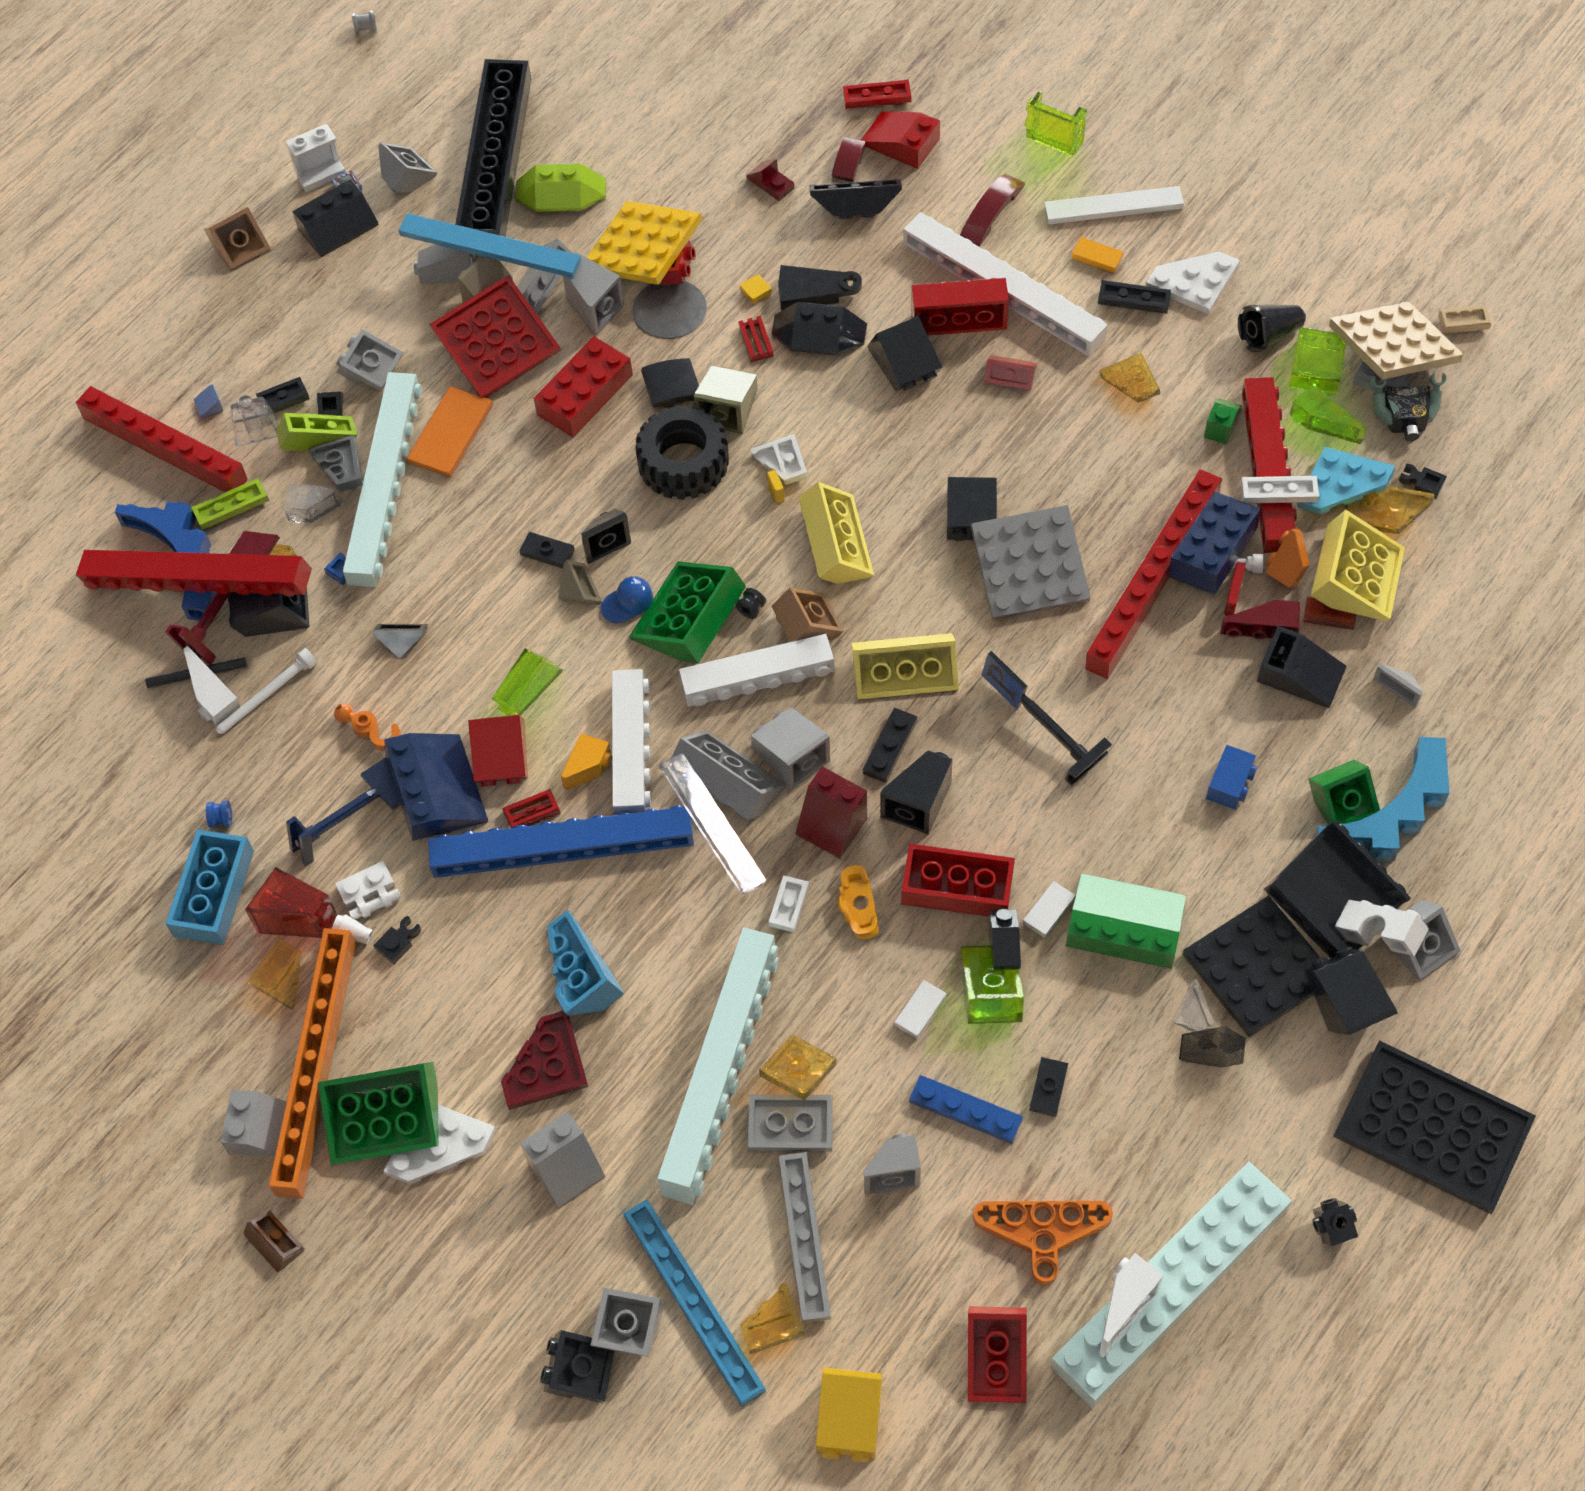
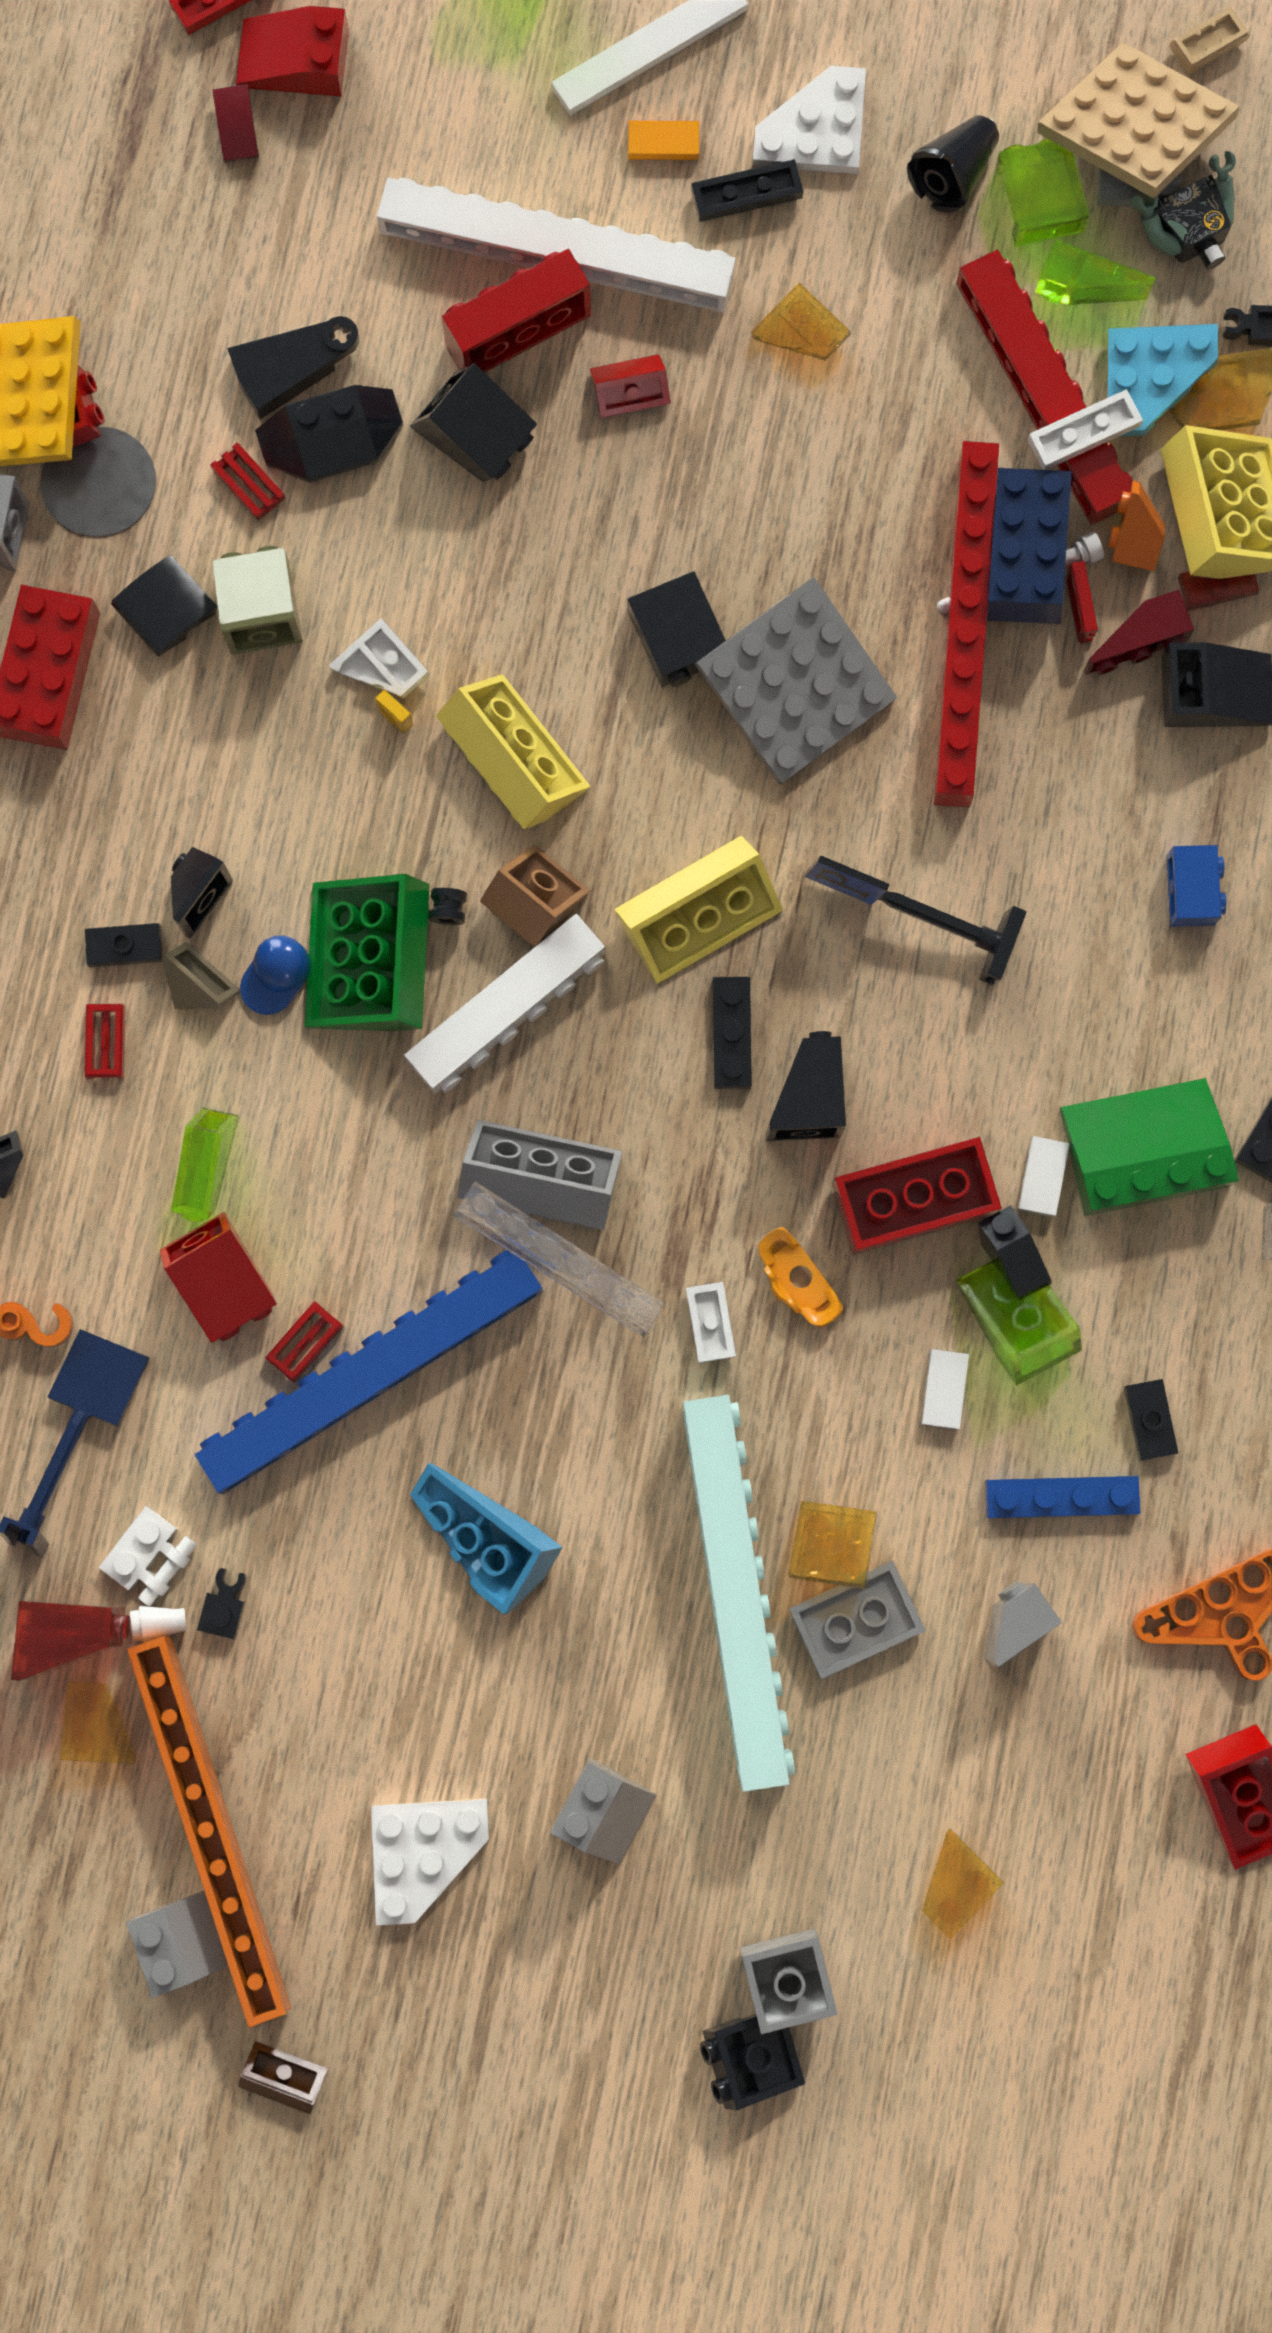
camera: 30 degrees left, 20 degrees up
(380, 1113) = (334, 1855): green slope -> none
(434, 783) = (157, 1366): dark blue slope -> none
(498, 613) = (105, 1072): none -> red tile
(545, 1064) = (508, 1686): dark red plate -> none
(586, 761) = (344, 1240): light orange slope -> none
(629, 741) = (388, 1188): white brick -> none
(679, 427) = (232, 670): black tyre -> none
(694, 1303) = (848, 1904): dark azure tile -> none
(755, 289) = (207, 399): yellow tile -> none
(770, 179) = (138, 205): dark red slope -> none
(792, 746) = (605, 1097): light grey slope -> none
(804, 1238) = (945, 1760): light grey plate -> none
(832, 812) = (711, 1176): dark red slope -> none
(849, 1414) = (1109, 1962): yellow slope -> none
(856, 197) = (281, 186): black wedge -> none
(989, 207) = (479, 123): dark red slope -> none
(1222, 420) = (953, 341): green slope -> none

